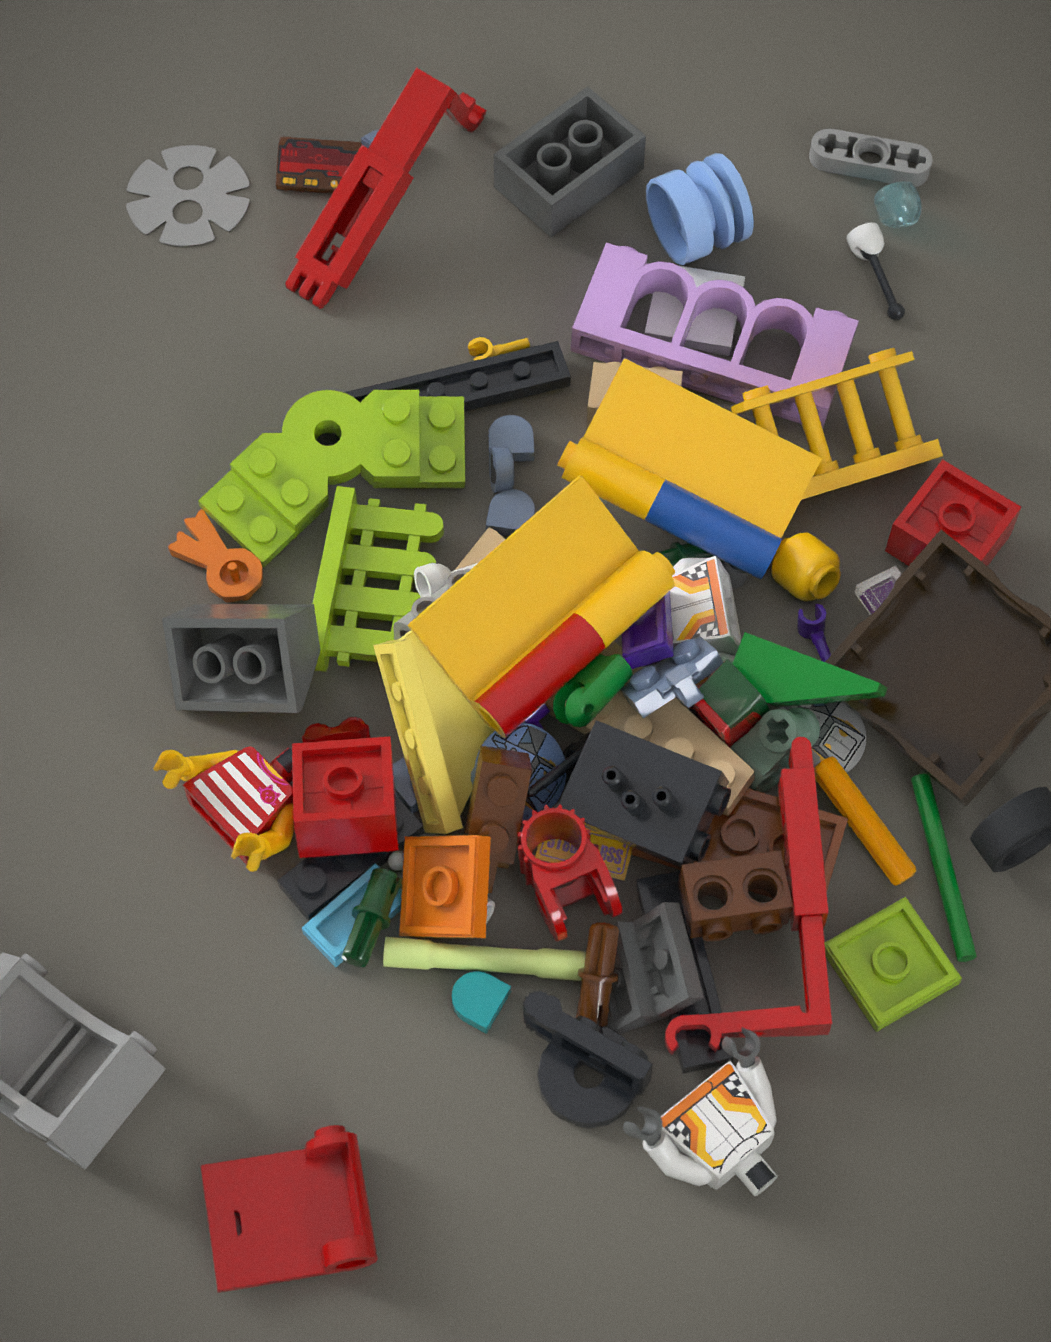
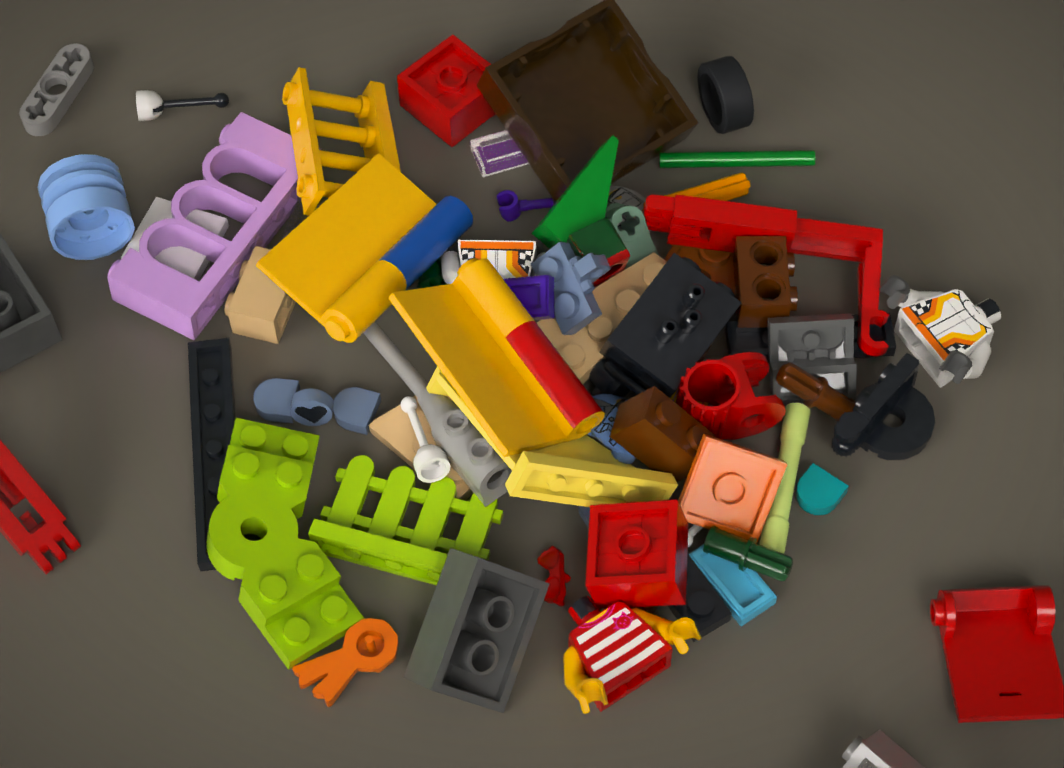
camera: 80 degrees left, 5 degrees down
(483, 345) = (176, 399): yellow hand -> none
(591, 690) = (570, 345): green piece -> none
(806, 567) = (466, 187): yellow head -> none
(891, 964) = (816, 195): lime tile -> none
(898, 204) = (117, 75): clear light blue piece -> none

